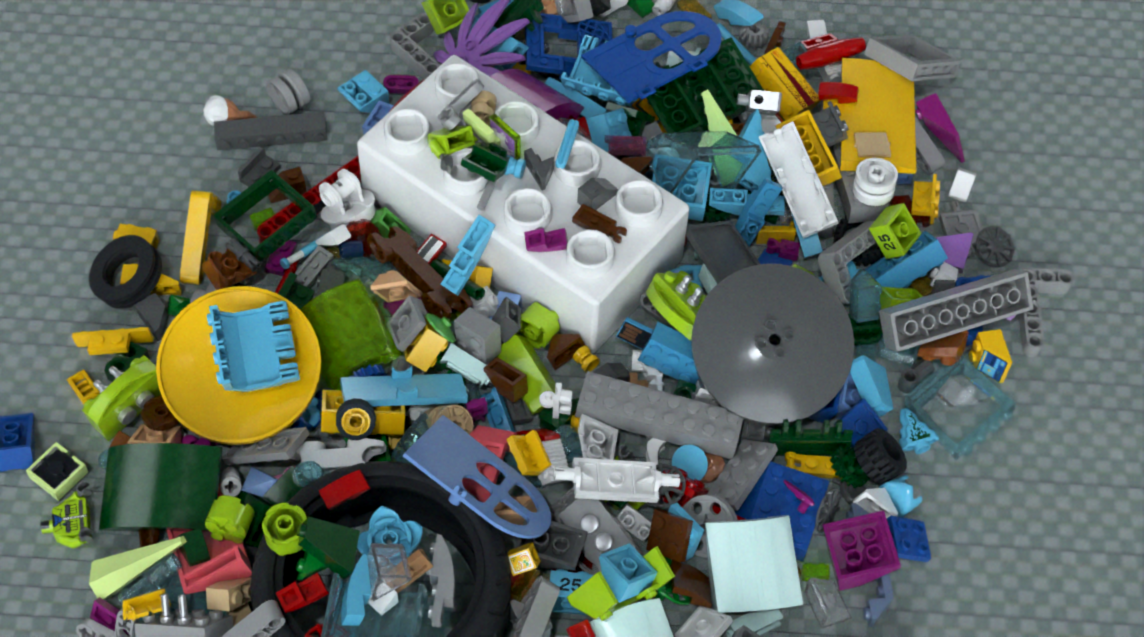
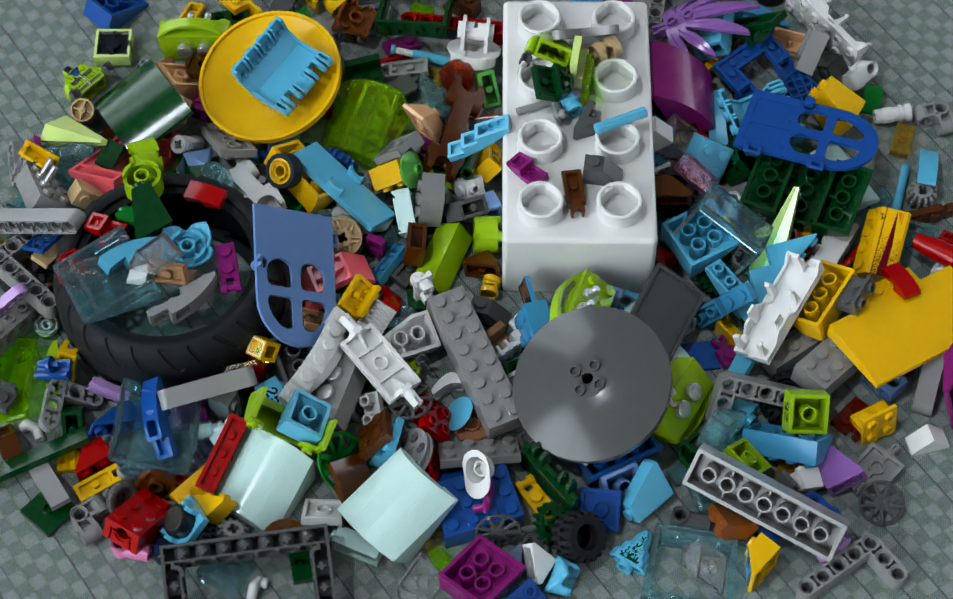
camera: 55 degrees right, 0 degrees up
(108, 542) = (83, 111): none -> tan wheel
(243, 255) = (369, 18): dark grey pin -> none
(334, 236) = (436, 57): white slope -> none
(351, 249) = (438, 76): dark blue piece -> none
(438, 523) = (228, 268): none -> magenta plate
(511, 183) = (558, 113): none -> light grey arm
(574, 520) = (320, 360): none -> white piece
(634, 14) = (838, 96): none -> yellow slope
(768, 101) = (830, 233): torso -> none
(776, 485) = (477, 473): none -> white piece
(872, 144) = (868, 337): tan piece -> none
(875, 181) = (830, 361): white wheel -> none

